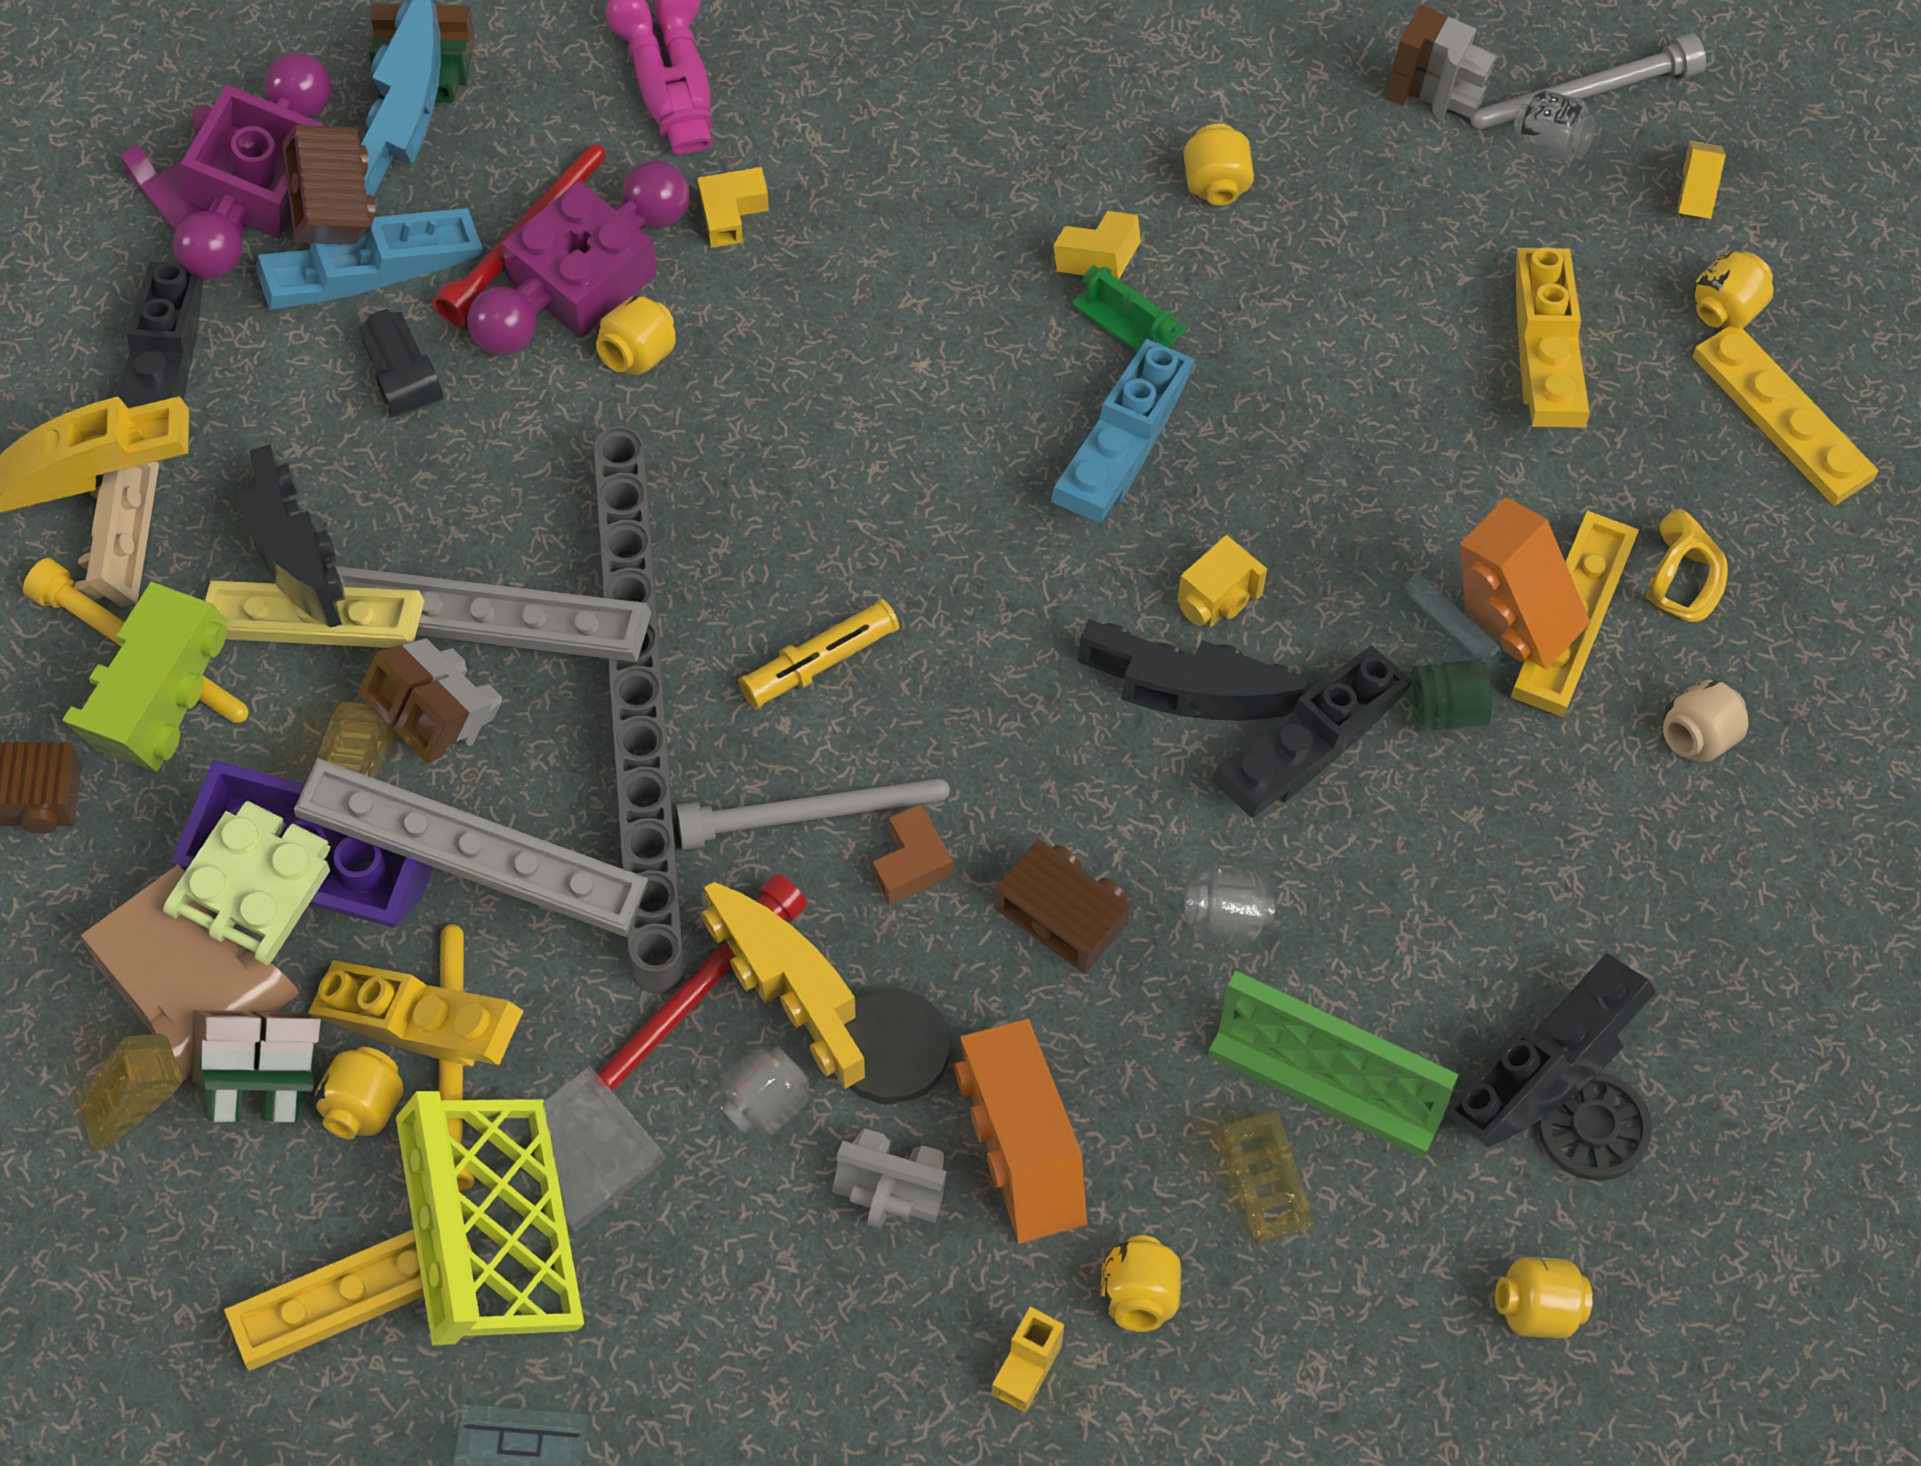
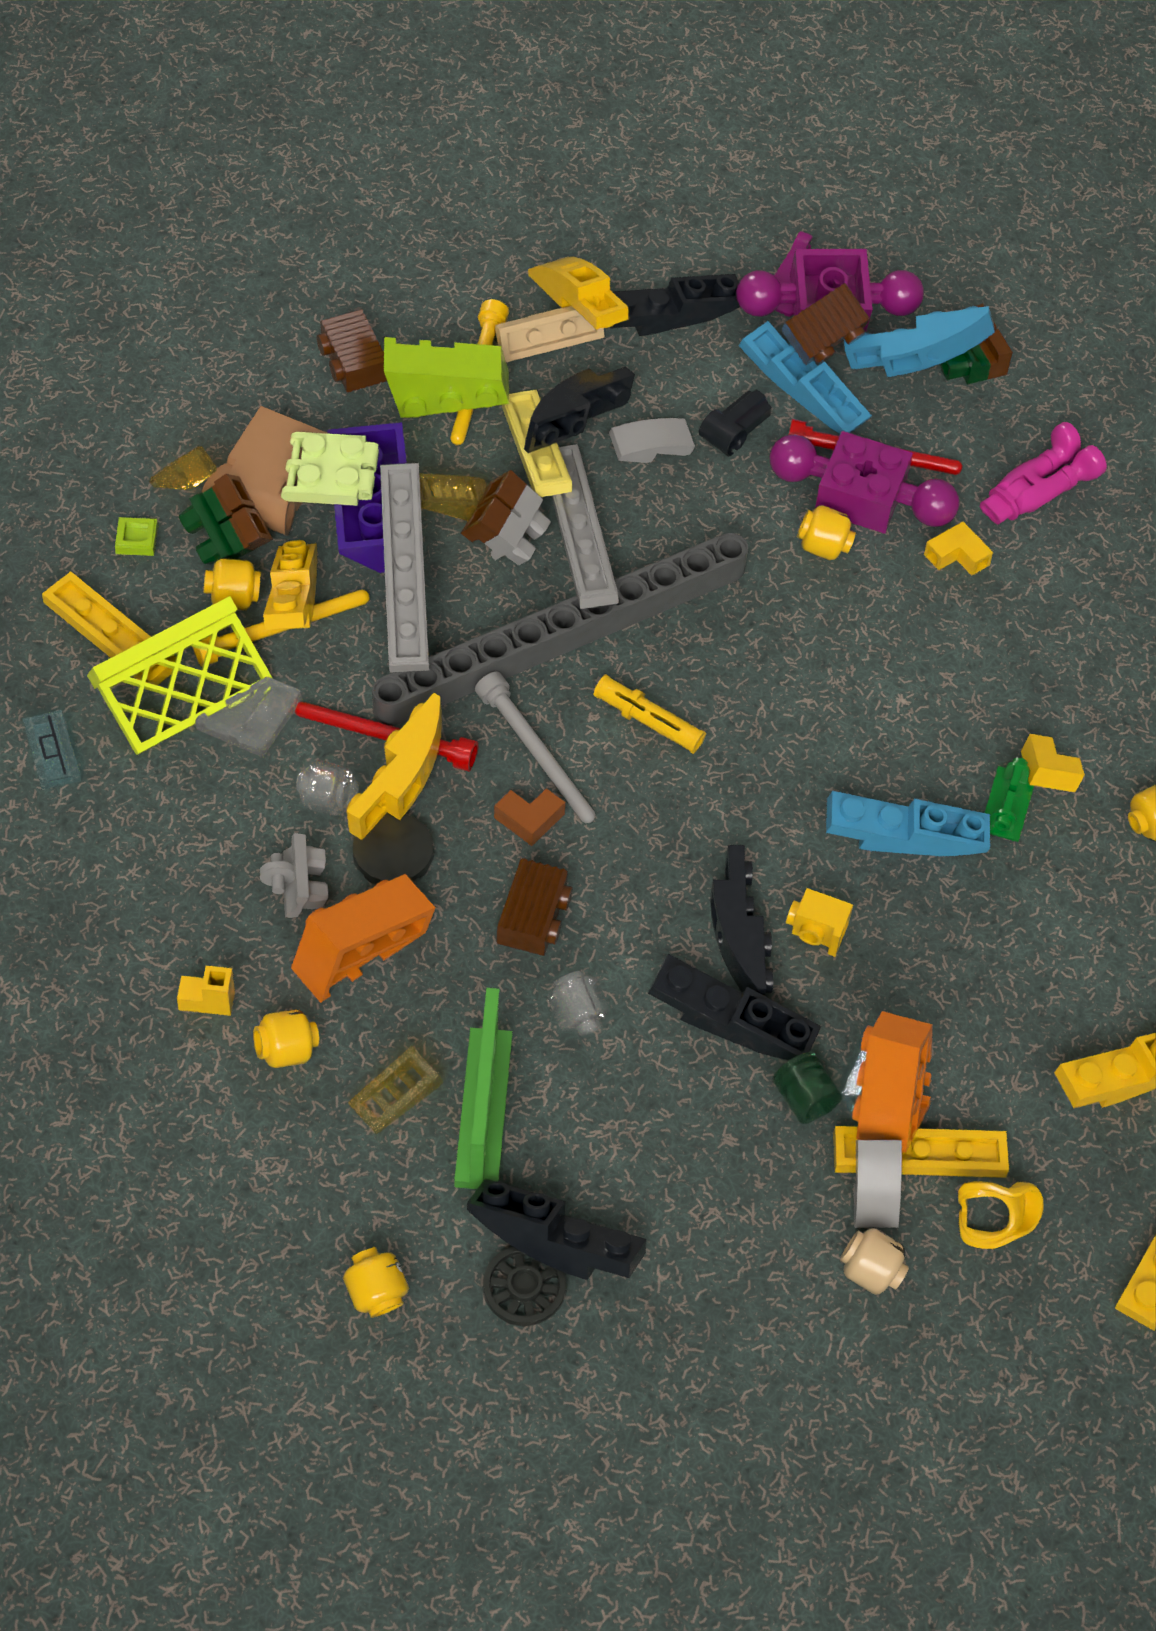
camera: 65 degrees right, 5 degrees down
(192, 1200) = (136, 536): none -> lime tile
(372, 475) = (646, 438): none -> light grey slope
(1613, 667) = (877, 1183): none -> light grey slope

